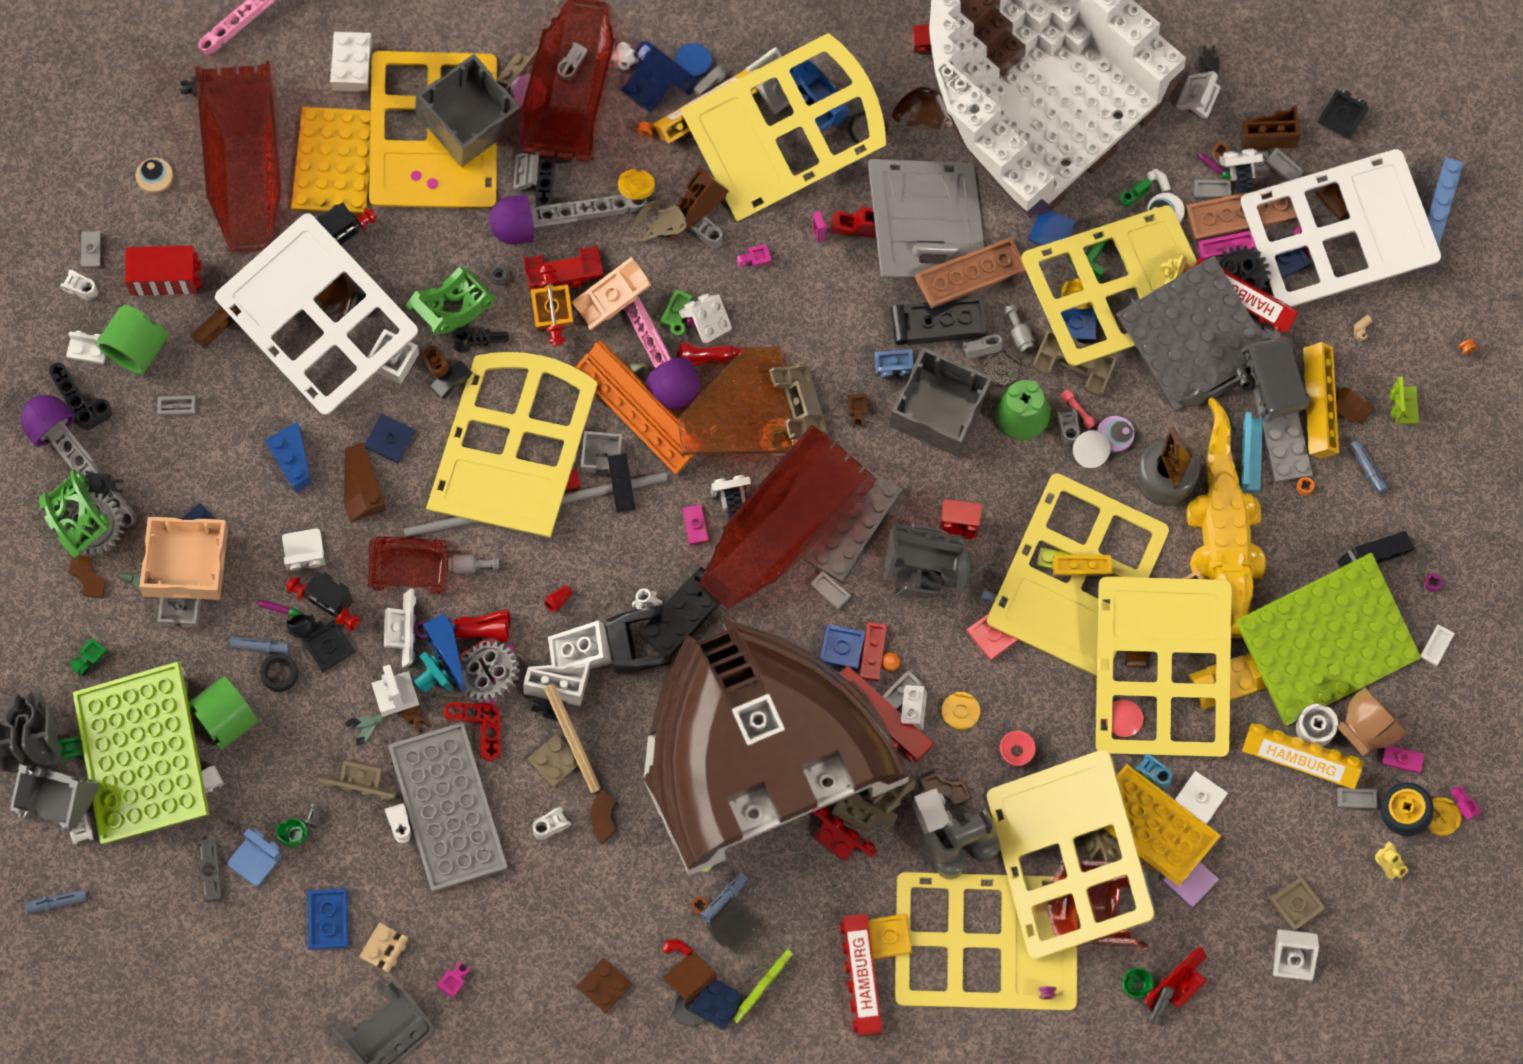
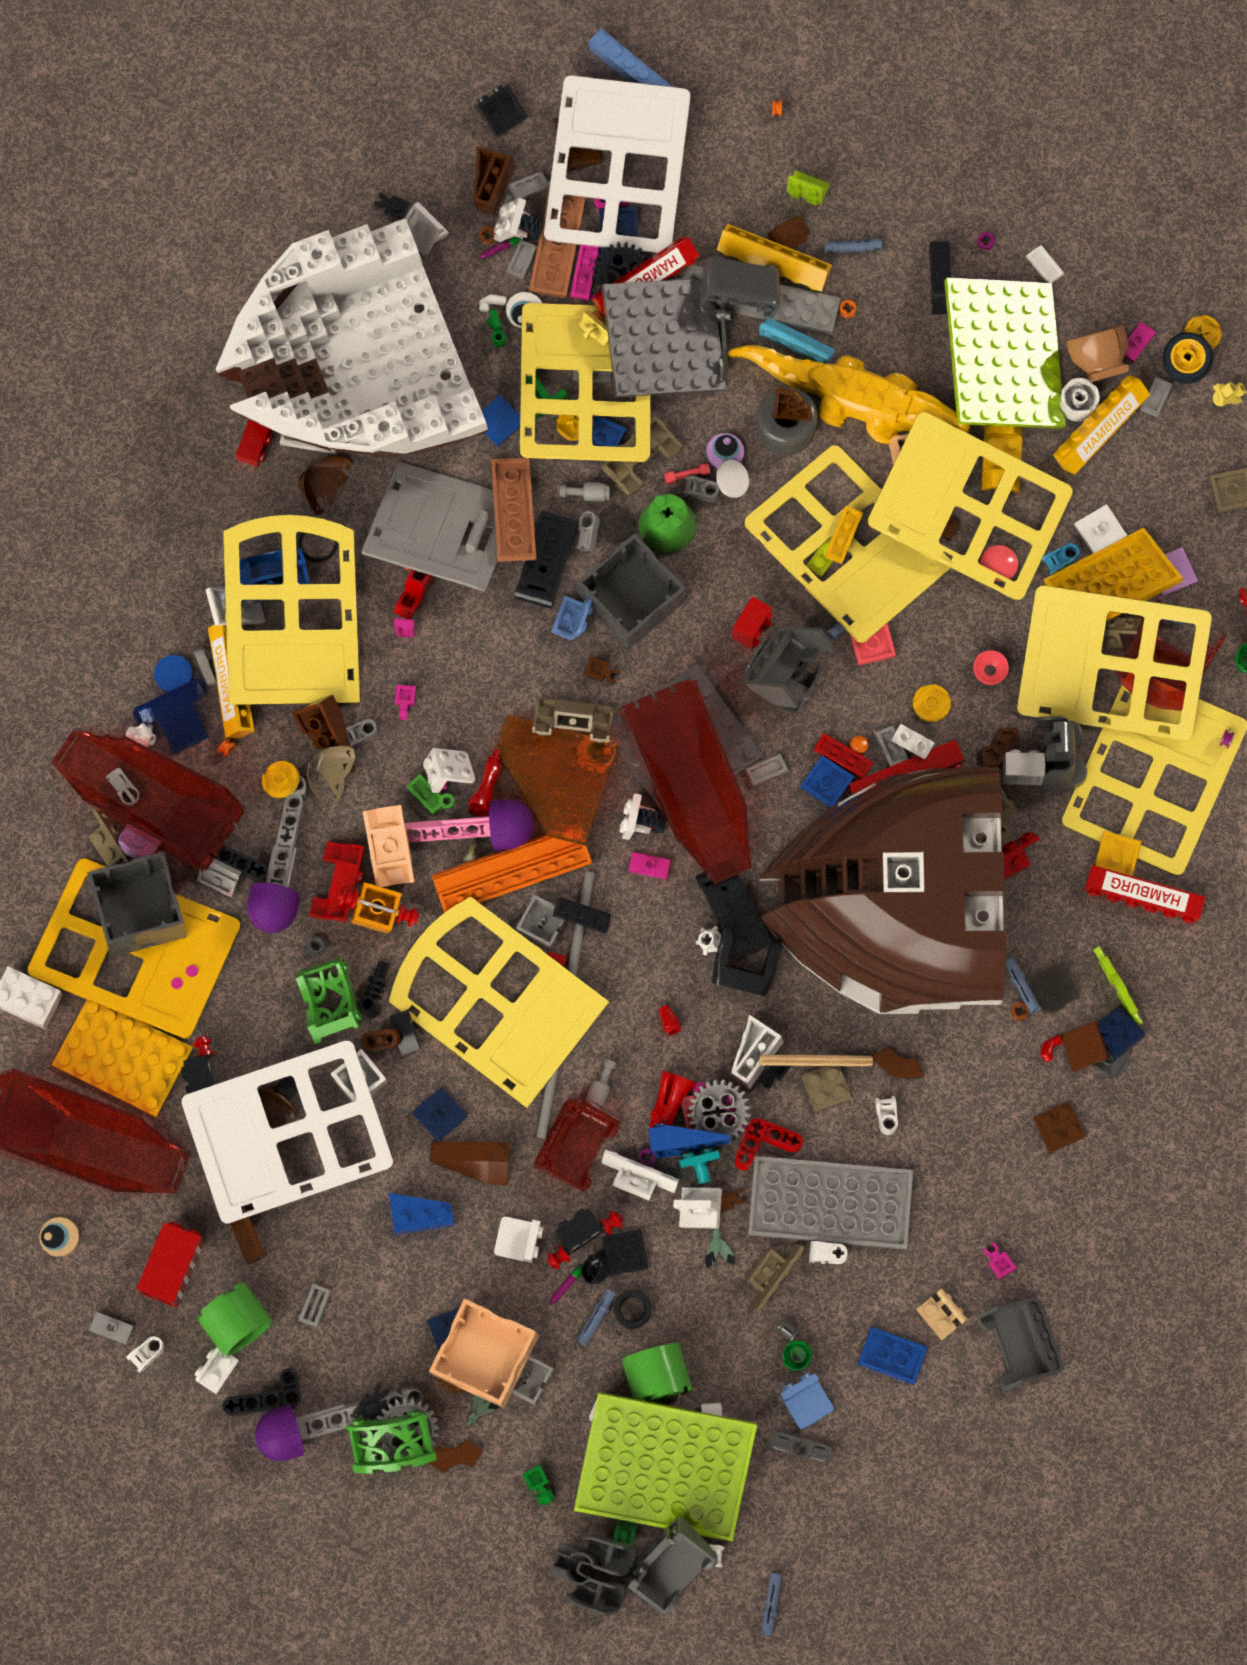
camera: 65 degrees left, 5 degrees up
(581, 645) = (727, 1018): white slope -> none
(1359, 328) = (715, 192): tan arm -> none
(1466, 804) = (1202, 307): dark pink plate -> none

